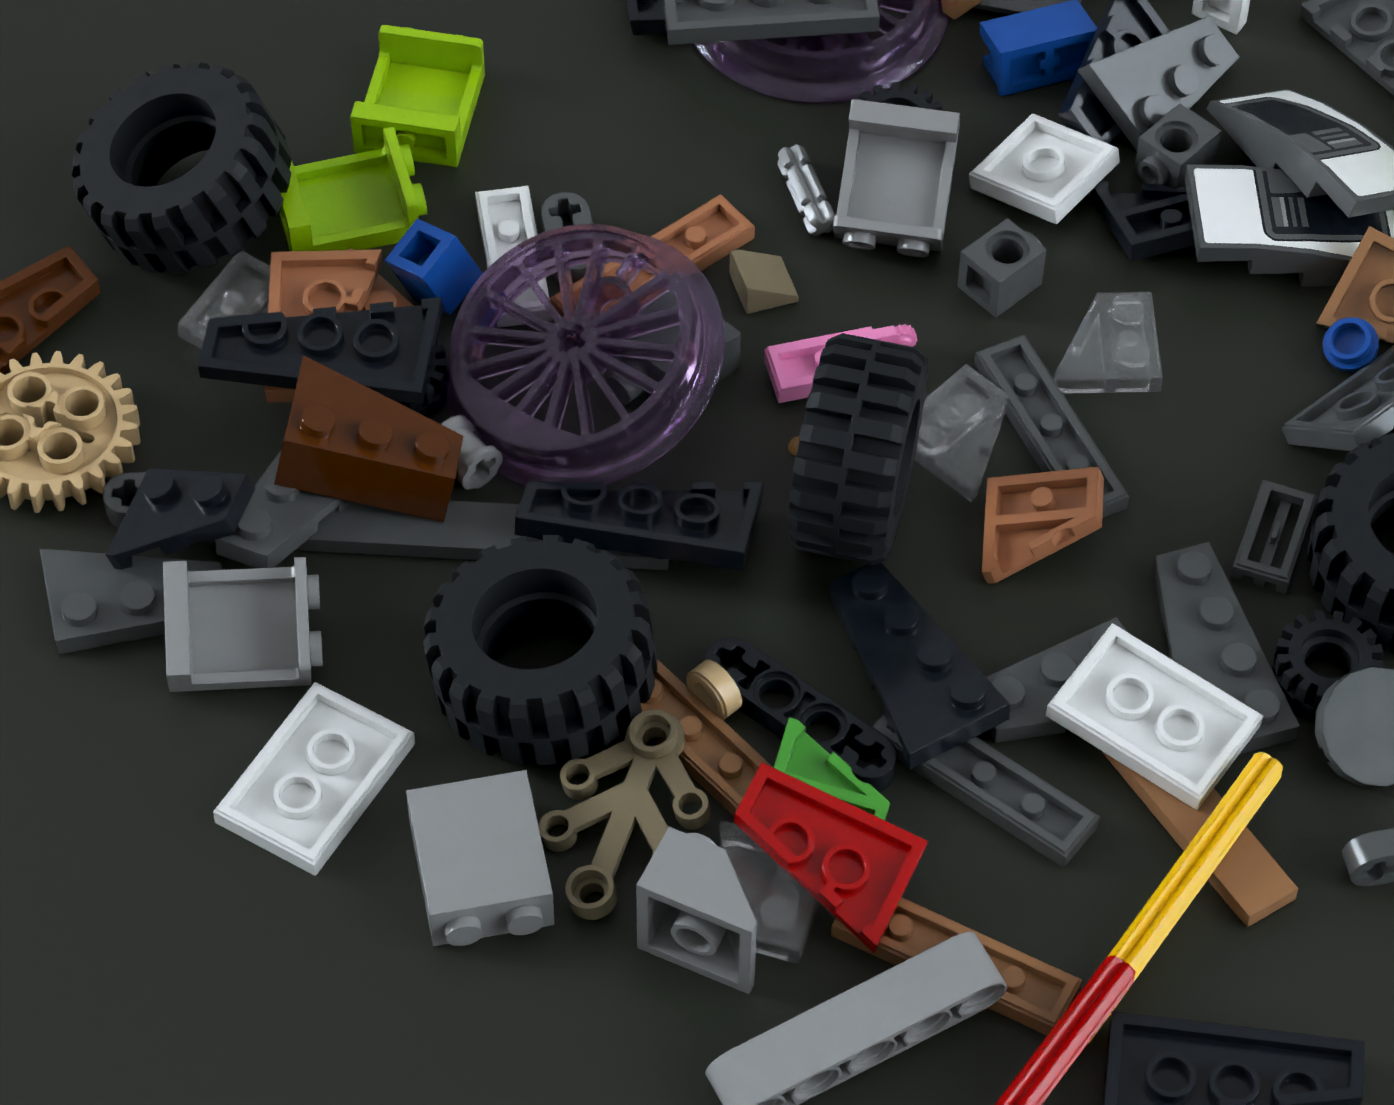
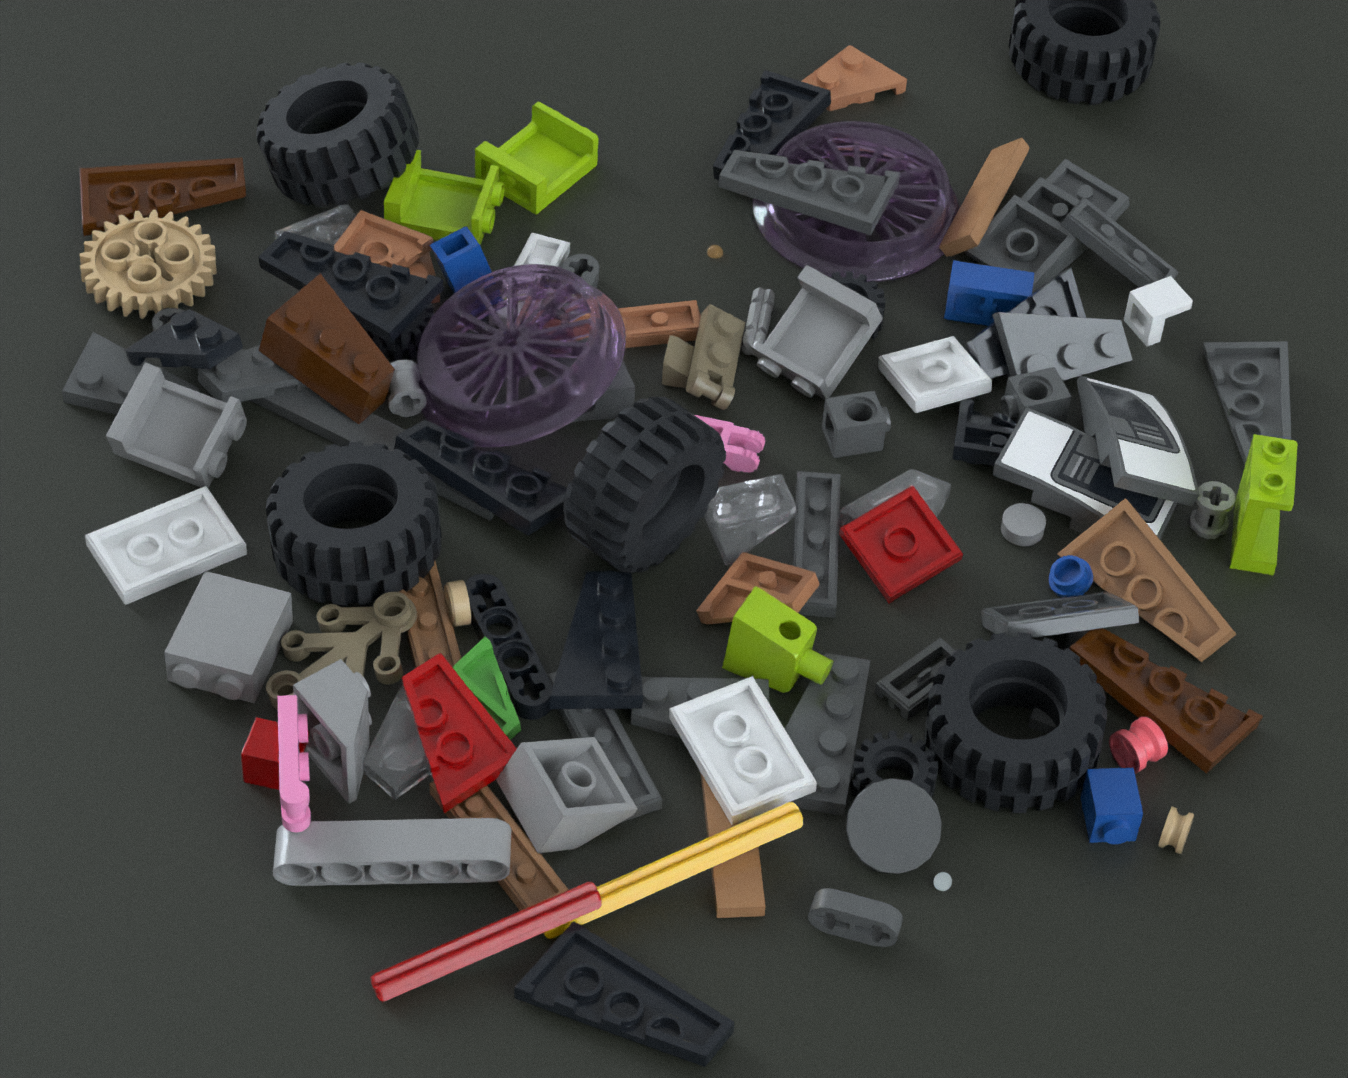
camera: 25 degrees right, 5 degrees down
(639, 977) = (261, 754): none -> red panel
(690, 983) = (293, 765): none -> bright pink plate
(693, 124) = (714, 251): none -> clear orange piece
(792, 255) = (715, 357): none -> dark tan plate
(997, 863) = (564, 792): none -> light grey slope
(1106, 573) = (773, 644): none -> lime torso
(1151, 388) = (900, 544): none -> red tile
(1255, 304) = (1023, 524): none -> light grey tile

